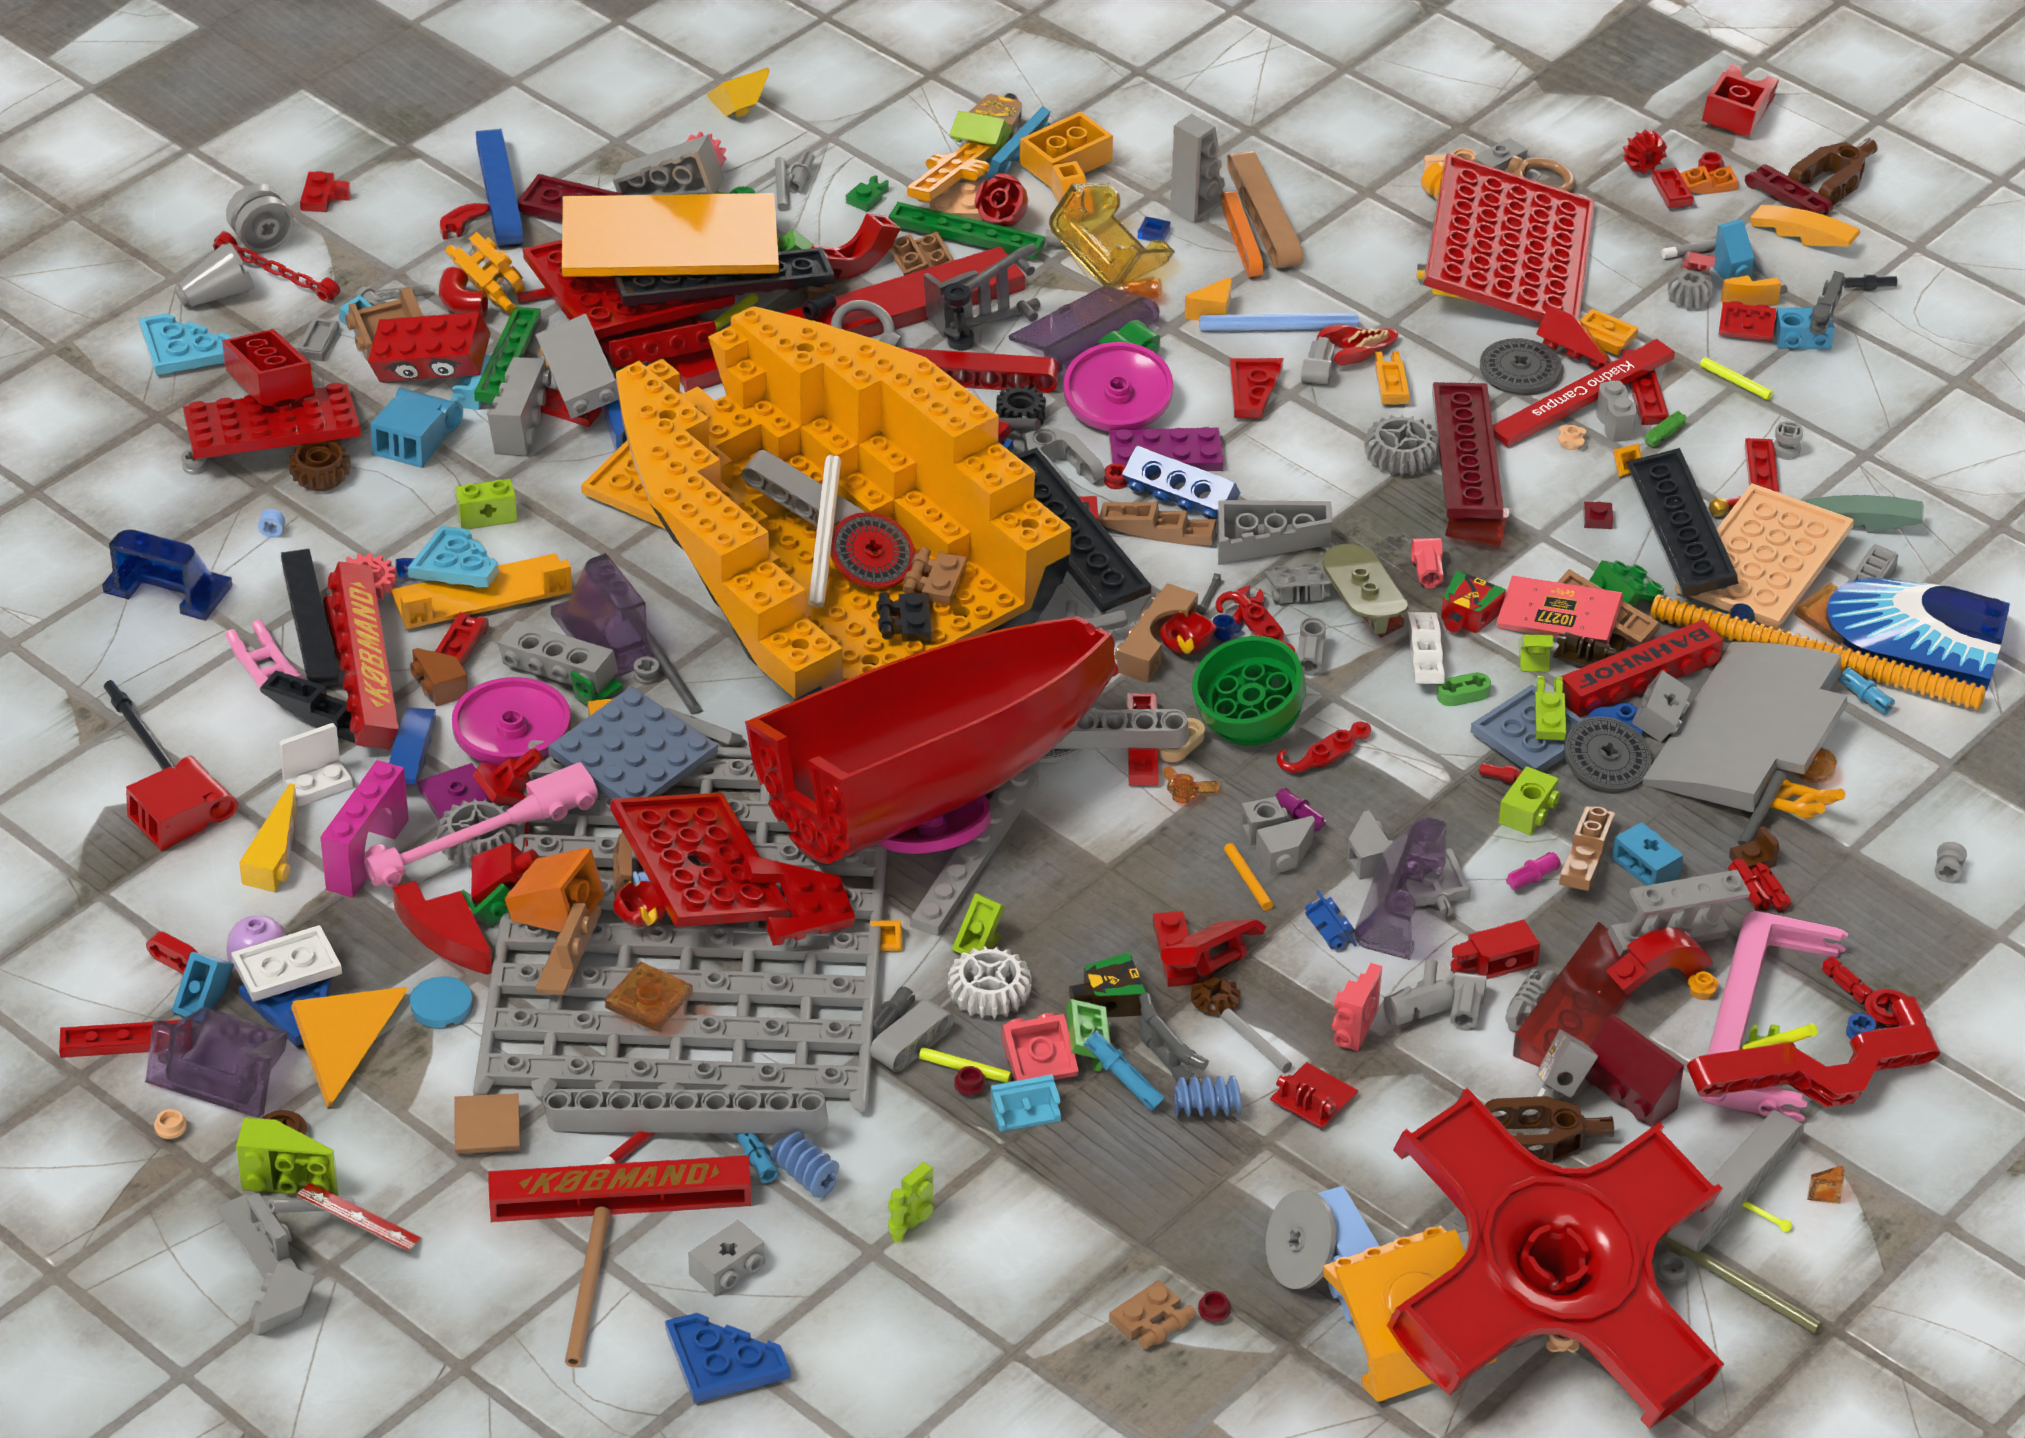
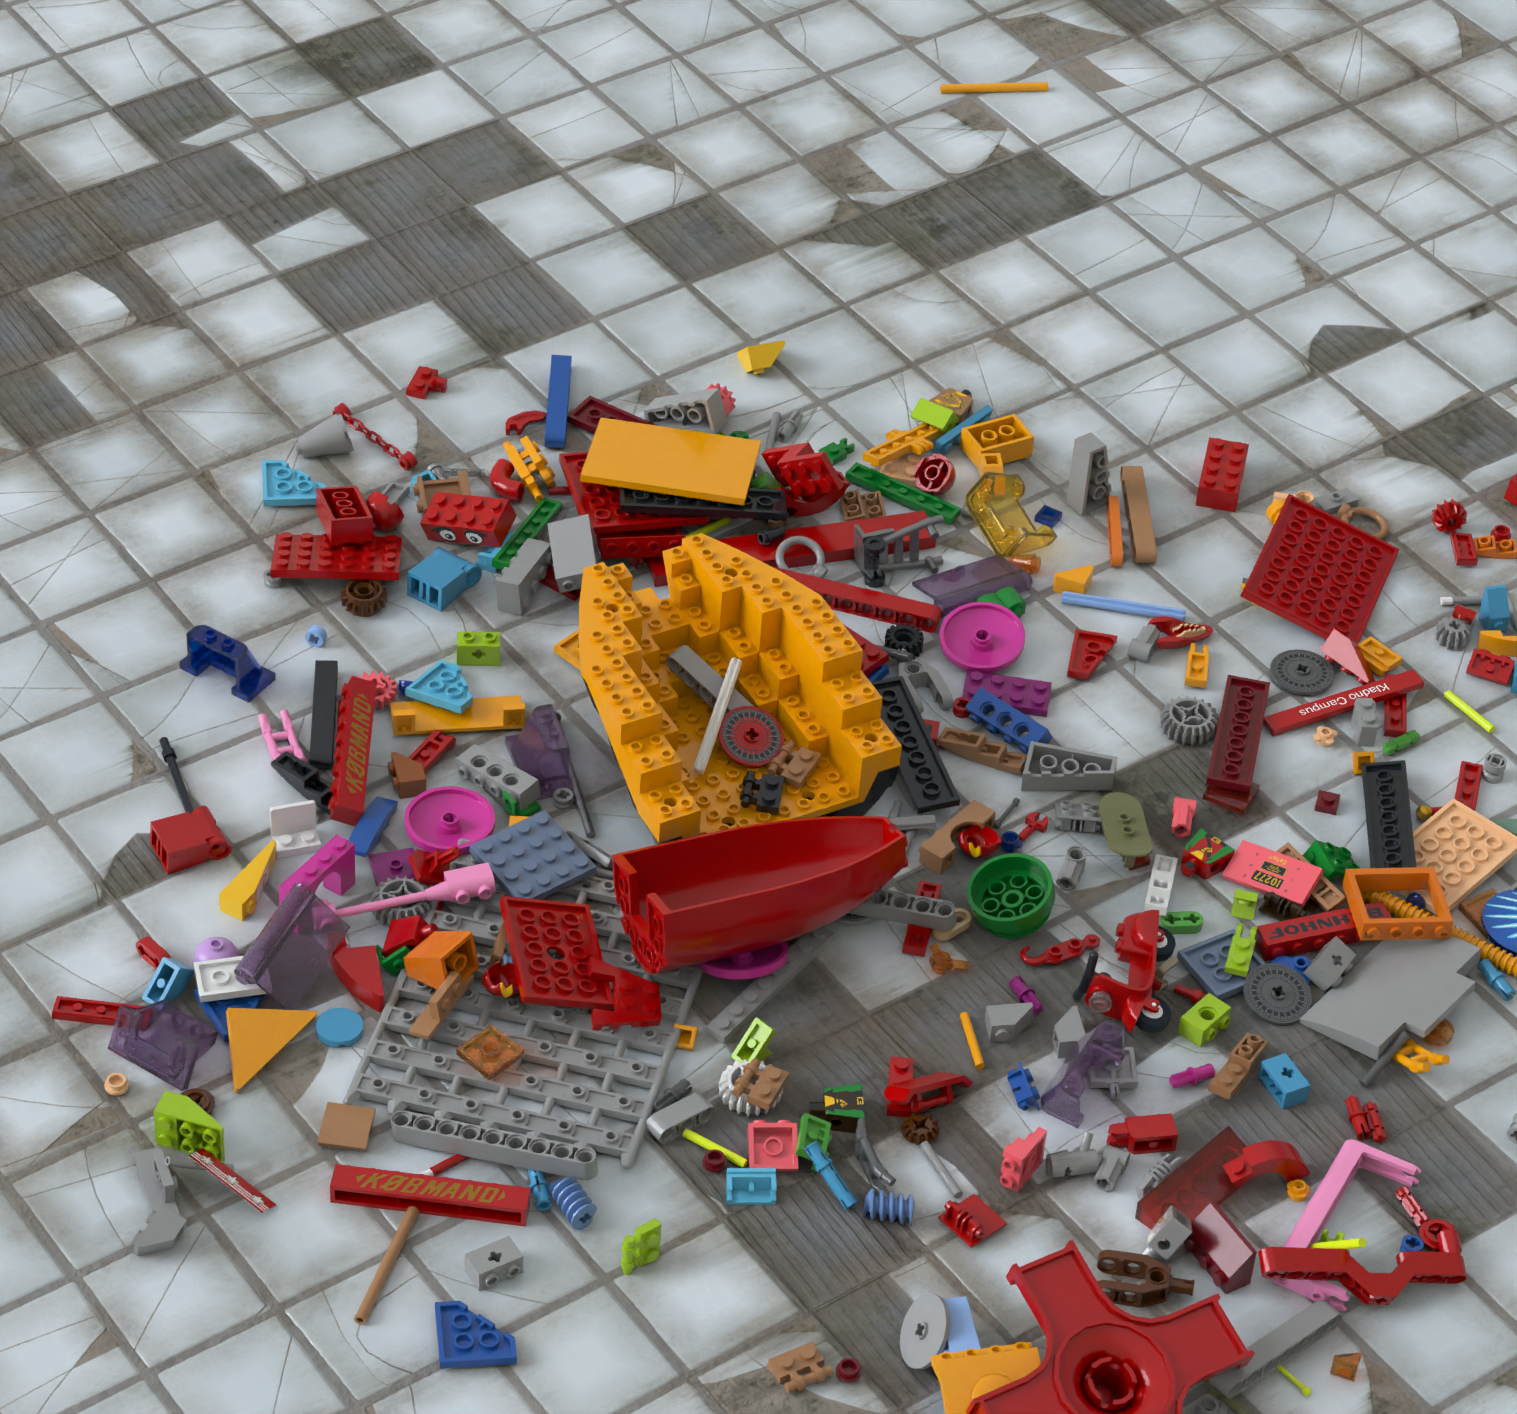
camera: 10 degrees right, 0 degrees up
(259, 217) = (371, 397): light grey wheel -> none
(323, 358) = (385, 516): none -> red cylinder
(353, 901) = (289, 941): none -> clear purple door
(840, 217) = (802, 469): none -> red bracket
(1013, 978) = (768, 1084): none -> medium nougat plate
(1254, 616) = (1037, 842): red piece -> none
(1260, 815) = (994, 994): light grey brick -> none
(1354, 145) = (1222, 474): none -> red brick
(1429, 726) = (1140, 945): none -> red piece
(1677, 895) = (1294, 1117): light grey fence -> none
(1719, 589) = (1397, 880): none -> orange window
(1761, 850) = (1373, 1092): reddish brown bracket -> none

